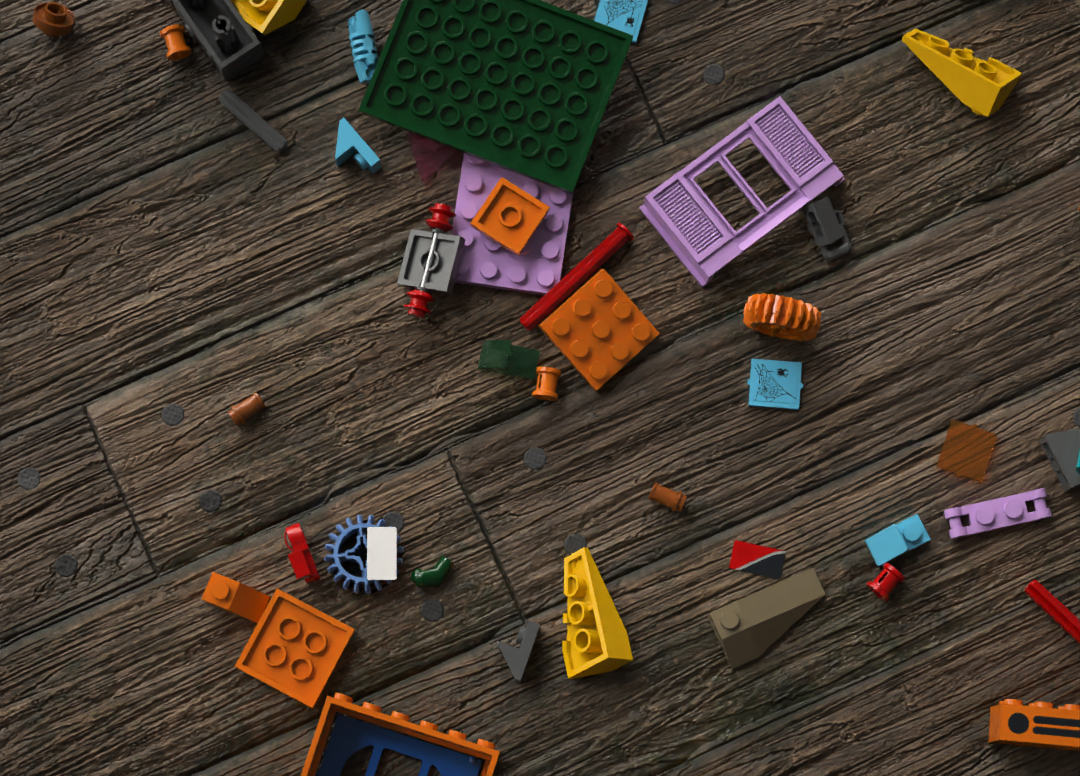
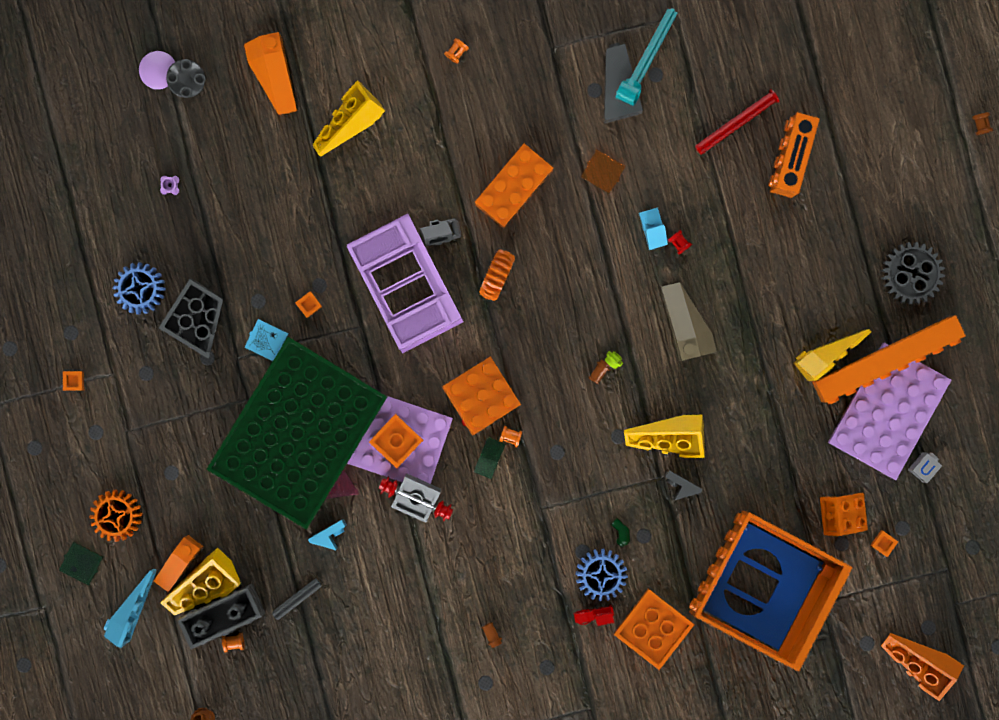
camera: 75 degrees left, 10 degrees up
(235, 597) = (614, 662): orange slope -> none
(363, 45) = (258, 517): medium azure hinge -> none
(381, 553) = (605, 564): white sticker -> none
(576, 277) = (443, 404): red axle -> none
(683, 62) = (308, 304): none -> orange plate
(689, 514) = (614, 360): none -> lime plate
(757, 559) = (648, 321): sticker -> none
(775, 384) = (536, 287): medium azure piece -> none
(917, 321) = (513, 186): none -> orange brick
(997, 513) = (648, 160): lavender plate -> none

